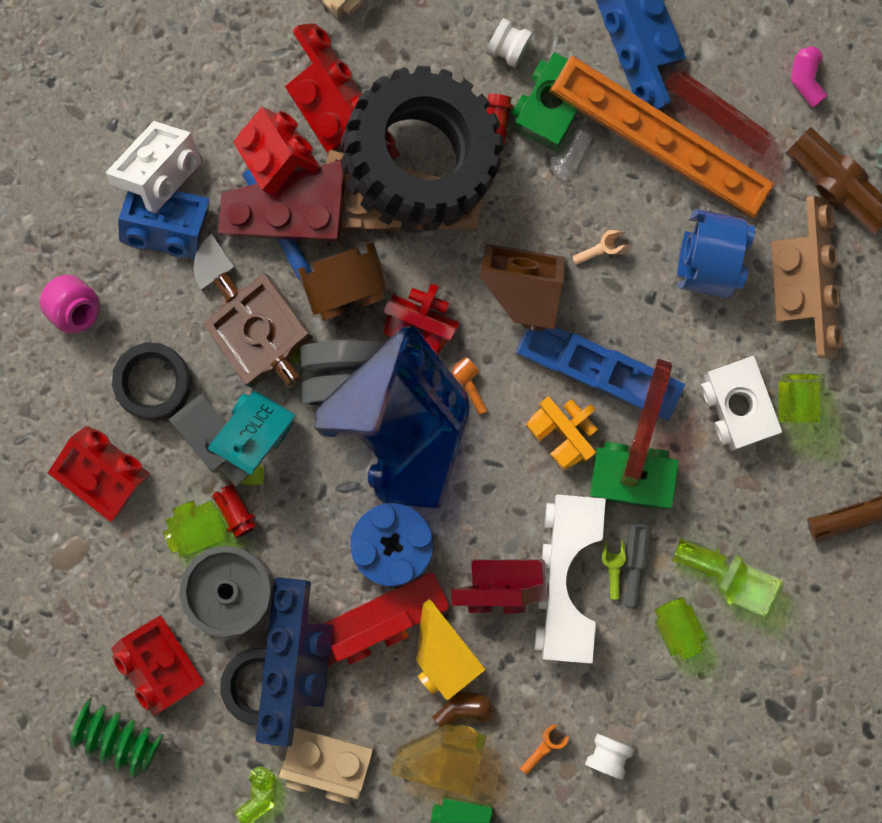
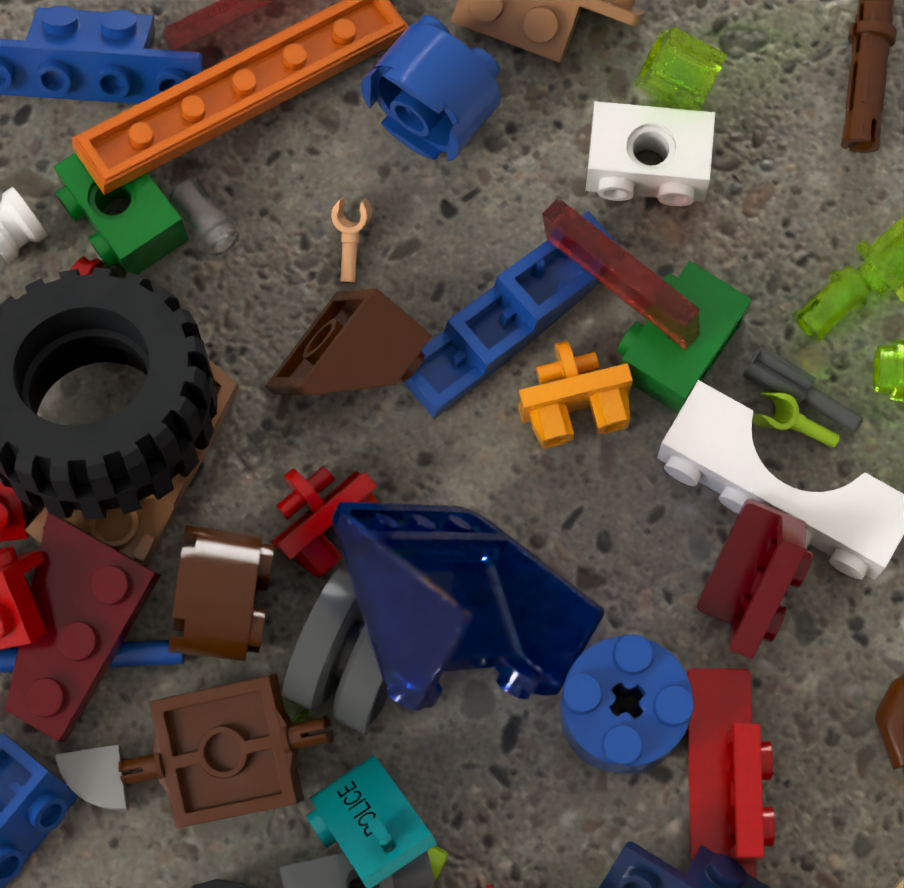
camera: 60 degrees left, 10 degrees down
(443, 655) = (815, 705): yellow slope -> none
(464, 372) = (428, 491): orange hand -> none

